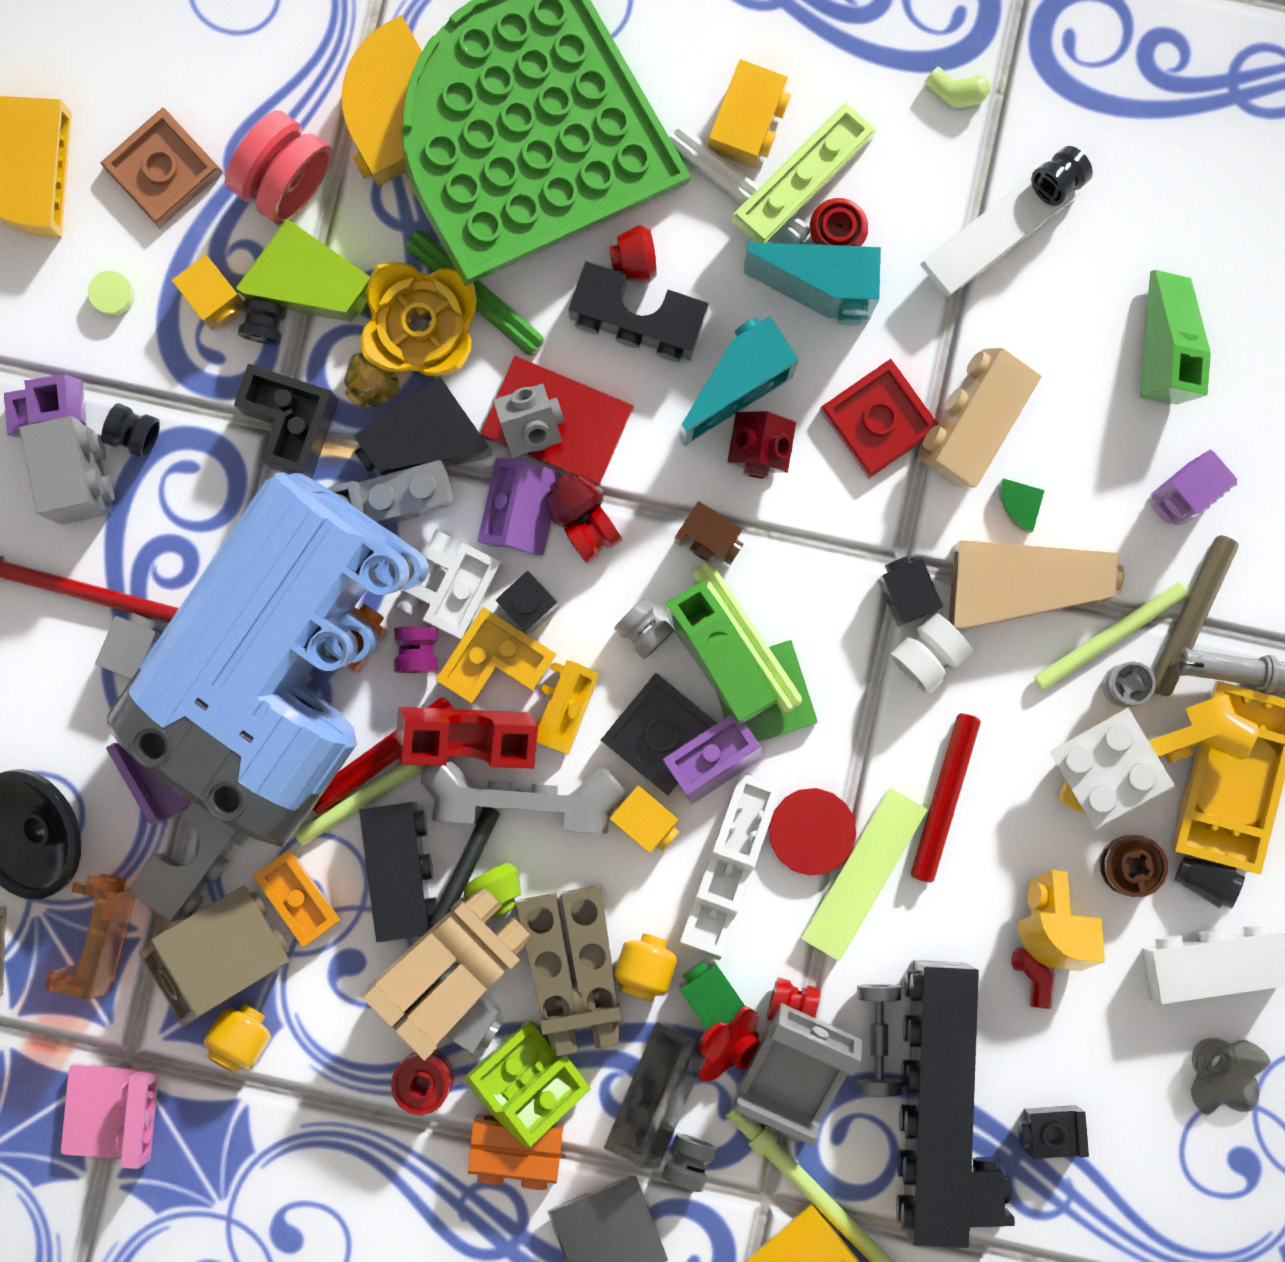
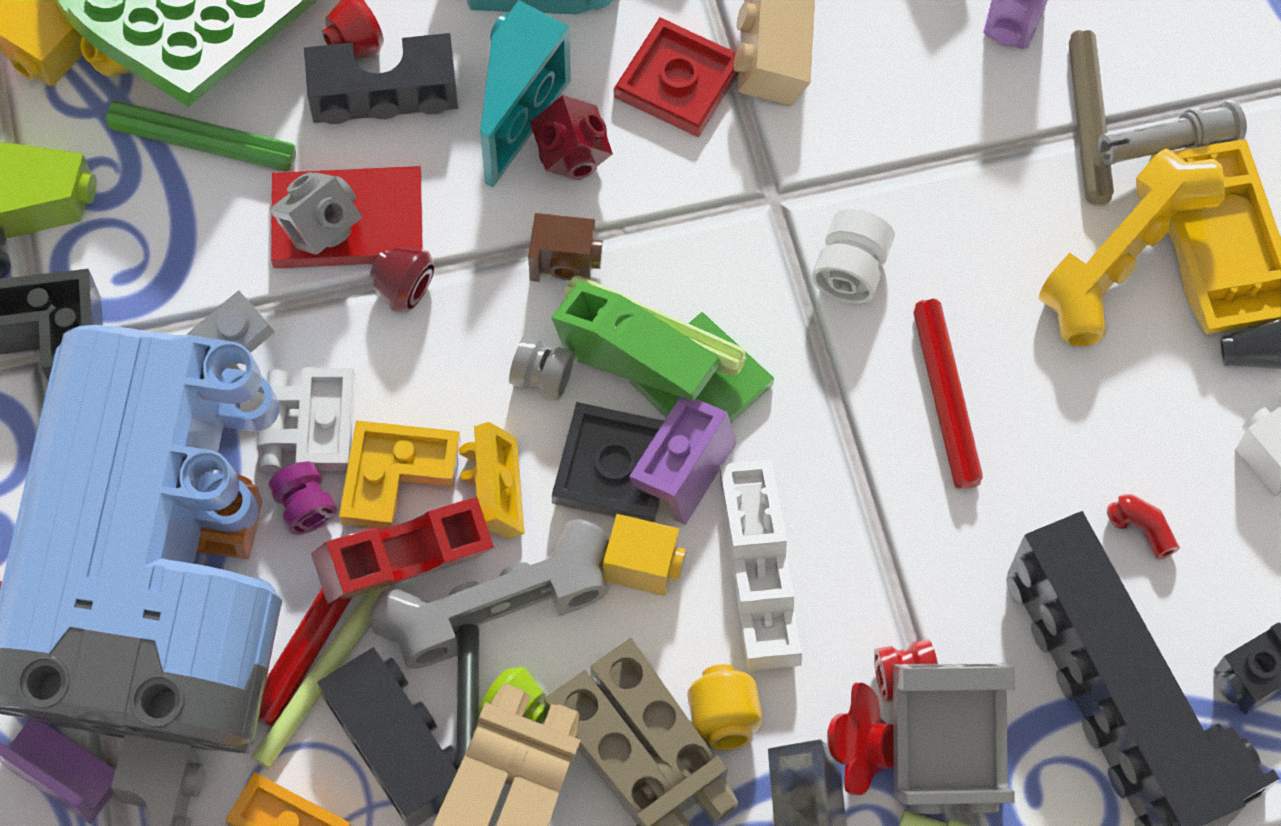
camera: 30 degrees left, 20 degrees down
(368, 383) = (126, 257): clear yellow cone -> none
(398, 295) = (126, 162): yellow brick -> none
(421, 431) = (207, 271): black slope -> none
(518, 506) = (345, 311): medium lavender panel -> none
(527, 603) = (403, 392): black brick -> none
(592, 535) = (438, 304): red wheel -> none
(710, 994) = (809, 700): green brick -> none
(812, 831) = (828, 490): red tile -> none
(864, 874) = (906, 509): yellowish green tile -> none
(879, 1085) = (992, 616): flat silver wheel -> none
(909, 590) = (797, 211): black brick -> none
(1020, 581) = (910, 150): tan slope -> none
(1021, 503) = (862, 89): green tile -> none
(1053, 933) = (1137, 461): yellow brick -> none
(1110, 636) = (1021, 171): yellowish green bar -> none
(1112, 768) = (1099, 268): white plate -> none
(1133, 865) = (1177, 366): reddish brown wheel -> none
(1137, 684) = (1066, 199): light grey wheel -> none

